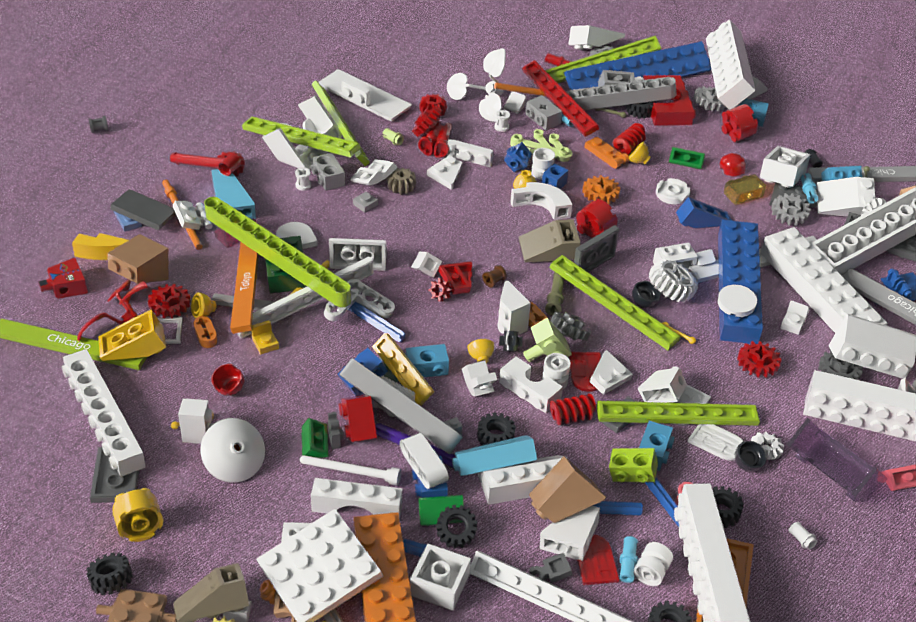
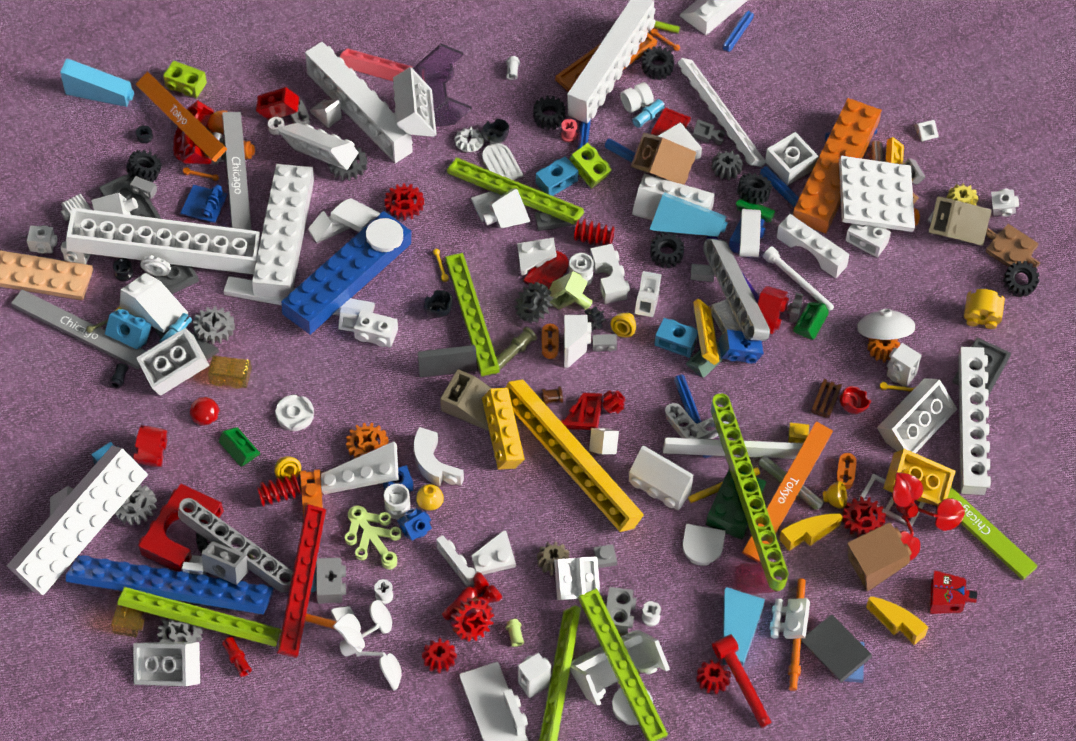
camera: 145 degrees left, 15 degrees up
(161, 395) = (918, 416): none -> white slope
(211, 273) = (809, 530): none -> yellow slope
(256, 368) = (832, 385): none -> reddish brown tile
(358, 110) = (534, 674): none -> white brick
(444, 239) = (573, 457): none -> yellow brick
(489, 331) = (604, 342): none -> light grey piece
(504, 542) = (727, 165): none -> dark grey gear
(510, 227) = (503, 428): none -> yellow brick
(583, 166) = (367, 470): none -> white wing
(595, 218) = (413, 399): red brick -> none
(673, 280) = (406, 299): white gear -> none
(700, 215) = (304, 361): blue slope -> none
(784, 329) = (354, 214): none -> white slope
(834, 409) = (414, 104): none -> white slope

